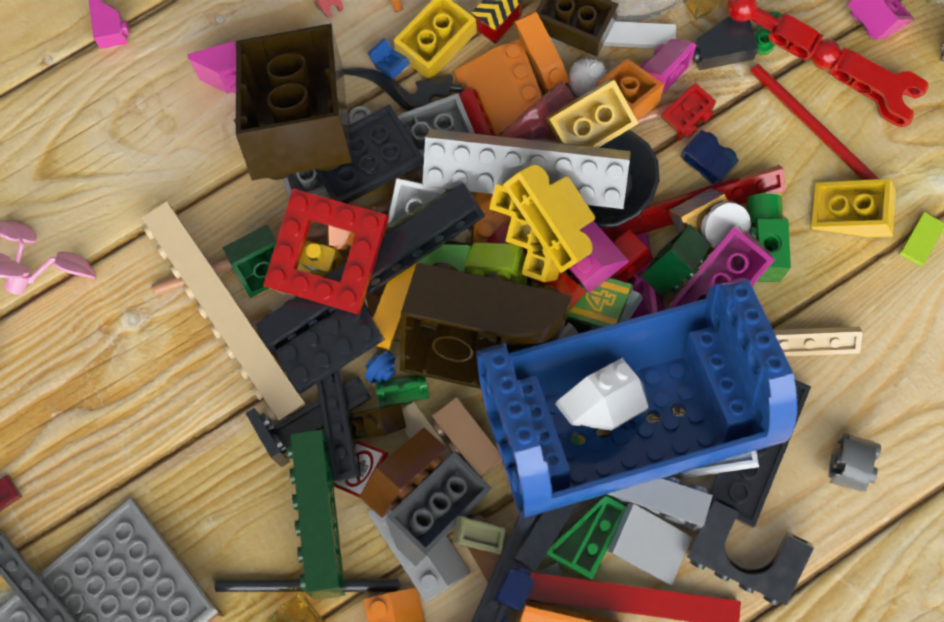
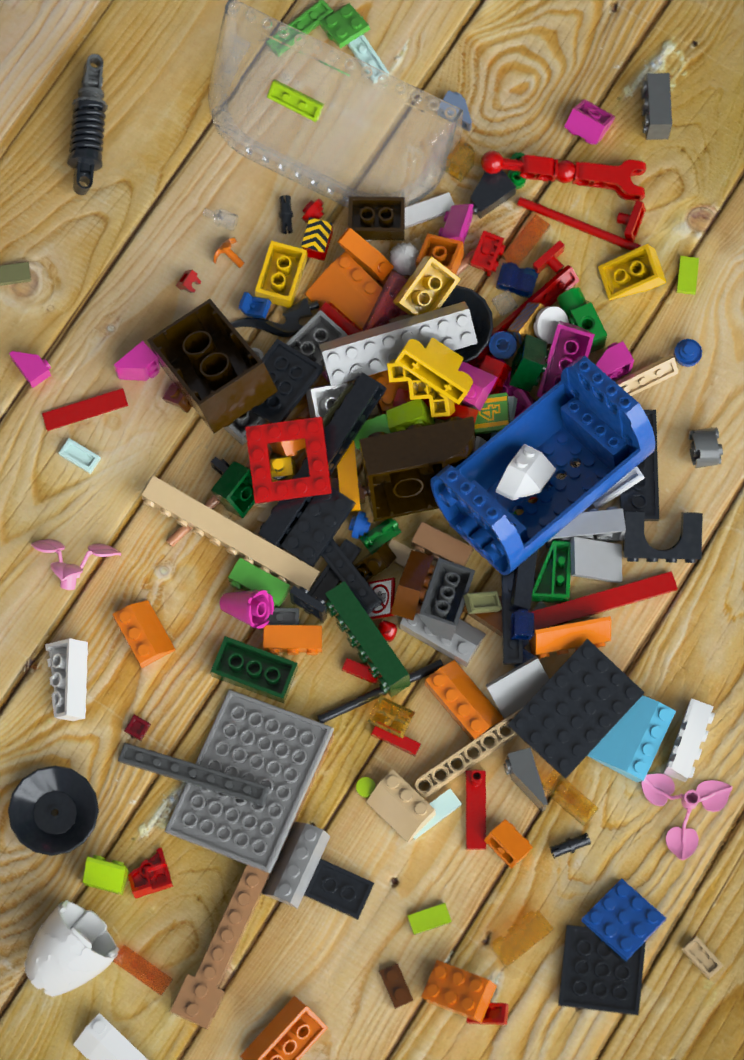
camera: 30 degrees left, 0 degrees up
(67, 382) = (143, 632): none -> orange slope
(109, 145) = (79, 455): none -> light aqua tile
(142, 96) = (85, 409): none -> red piece
(167, 488) = (254, 669): none -> dark green brick
(199, 409) = (249, 606): none -> dark pink cone
(227, 384) = (250, 577): none -> bright green brick
(232, 437) = (284, 616): none -> dark grey plate
(234, 471) = (293, 639): none -> orange brick
(254, 222) = (219, 465): none -> black plate
(290, 541) = (358, 670): none -> red piece
(351, 512) = (387, 630): none -> red piece
(656, 226) = (503, 345): none -> blue plate
(682, 178) = (504, 303): none -> clear tile
(742, 117) = (526, 240): none -> clear orange plate
(761, 149) = (550, 259): none -> red tile
(787, 305) = (616, 361): none -> dark pink slope
(882, 147) = (632, 221): none -> red tile
(882, 333) = (688, 352): none -> blue plate

